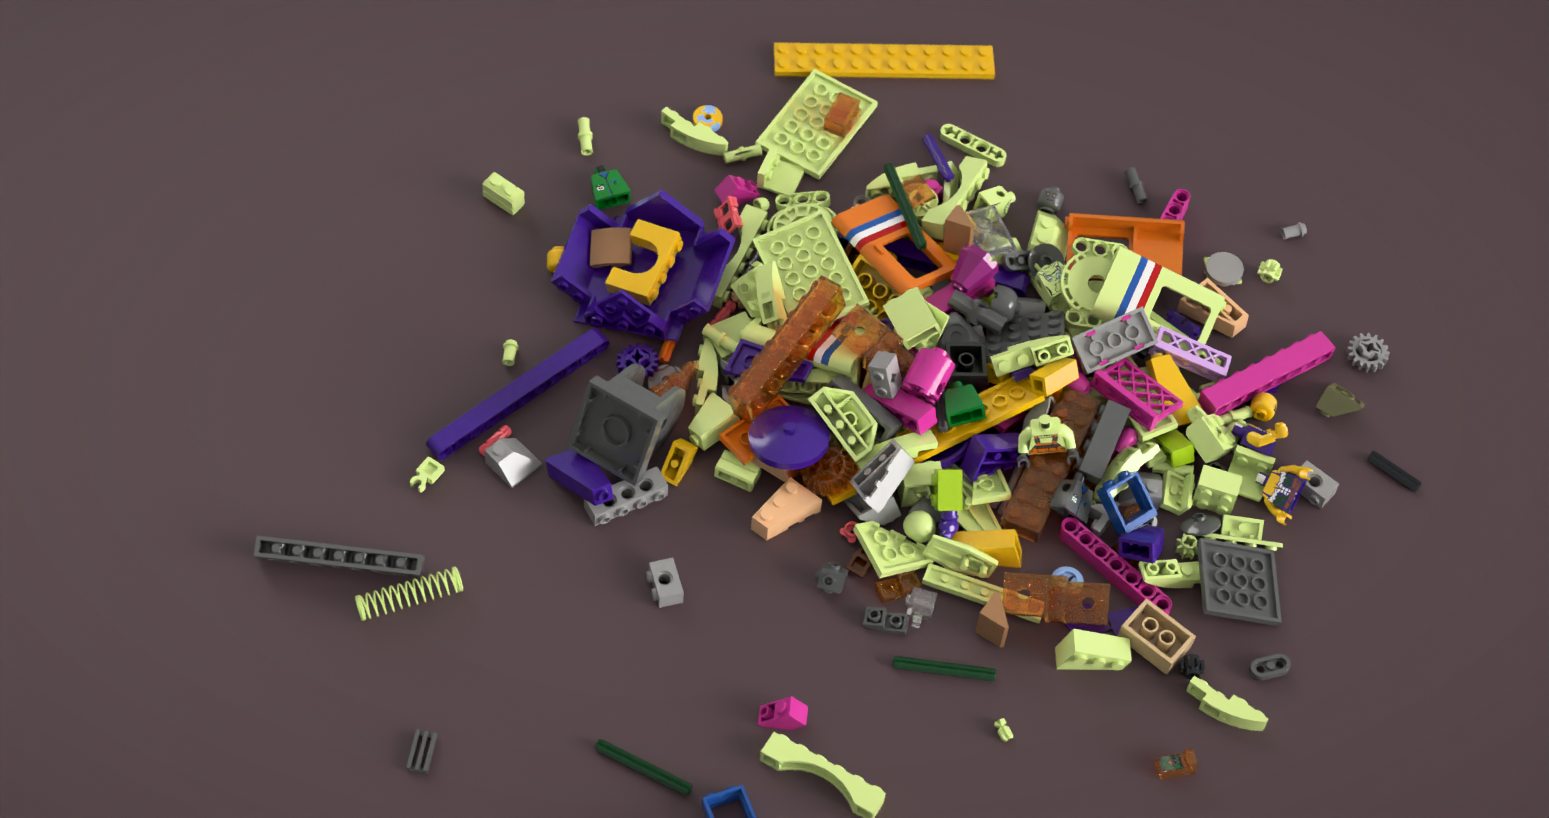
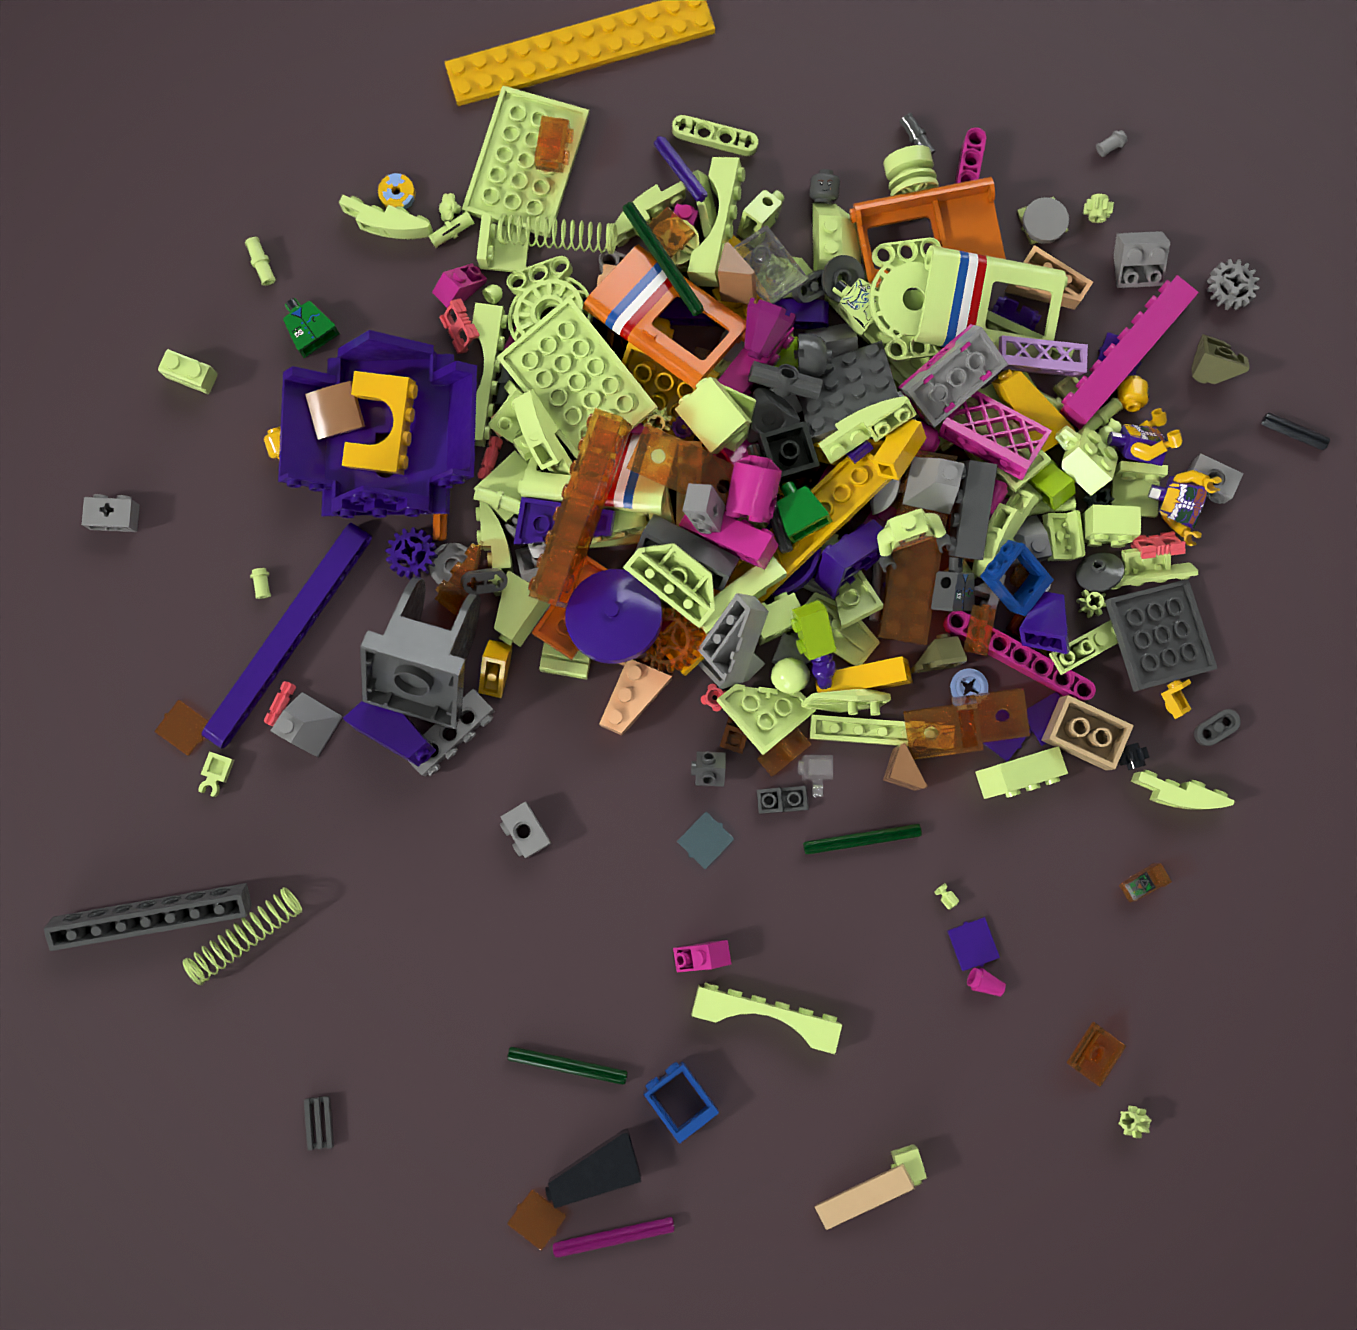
camera: 15 degrees left, 25 degrees up
(408, 273) = (122, 519): none -> light grey brick
(410, 437) = (182, 727): none -> clear orange piece
(694, 385) = (484, 586): none -> dark grey beam
(746, 138) = (448, 207): none -> yellowish green plant
(812, 634) = (705, 840): none -> clear light blue piece
(869, 176) = (609, 229): none -> yellowish green piece
(1016, 774) = (973, 944): none -> dark purple piece
(1017, 802) = (984, 982): none -> dark pink cone
(1047, 550) = (941, 654): none -> olive slope
(1077, 410) = (933, 484): none -> light grey slope
(1086, 533) = (980, 629): none -> clear orange hinge
(1122, 200) = (910, 170): none -> yellowish green wheel
(1238, 633) = (1174, 698): none -> yellow bracket
(1245, 516) = (1158, 545): none -> coral piece
(1295, 315) = (1140, 259): none -> light grey slope

